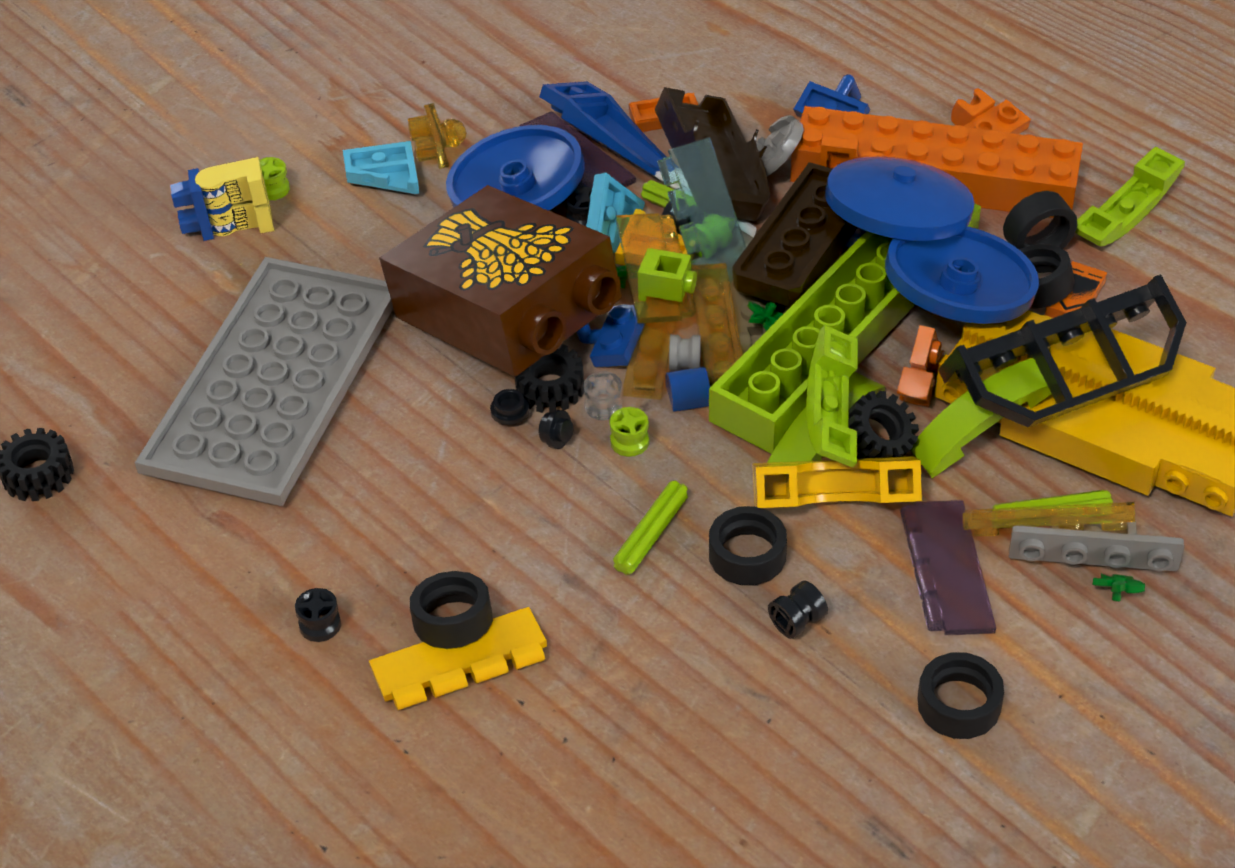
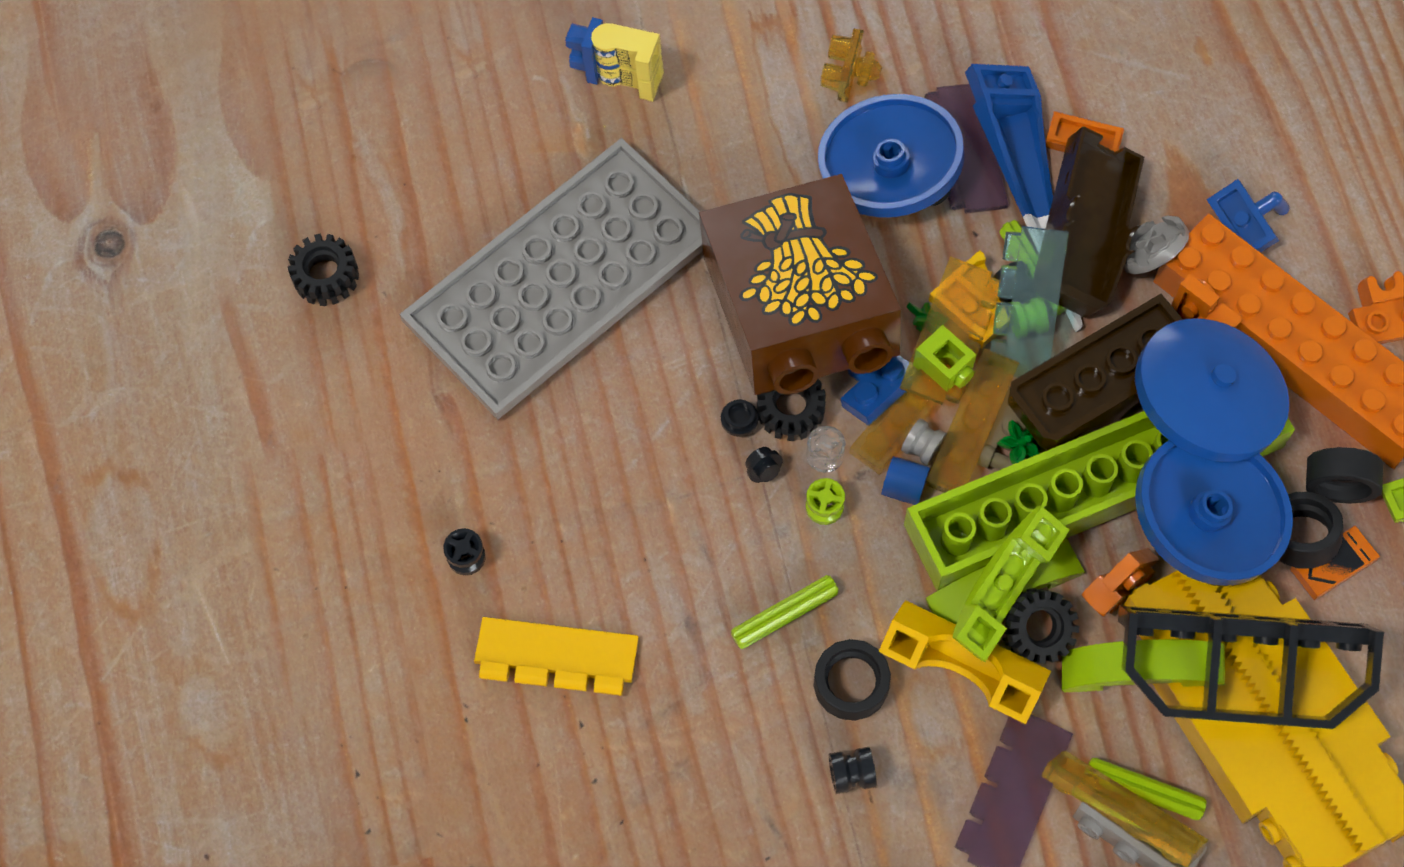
camera: 30 degrees right, 20 degrees up
(275, 178) = (672, 34): lime wheel -> none
(383, 167) = (783, 78): medium azure wing -> none
(452, 630) = (569, 581): black tyre -> none
(578, 205) = (938, 213): black wheel -> none
(607, 201) = (954, 237): medium azure wing -> none

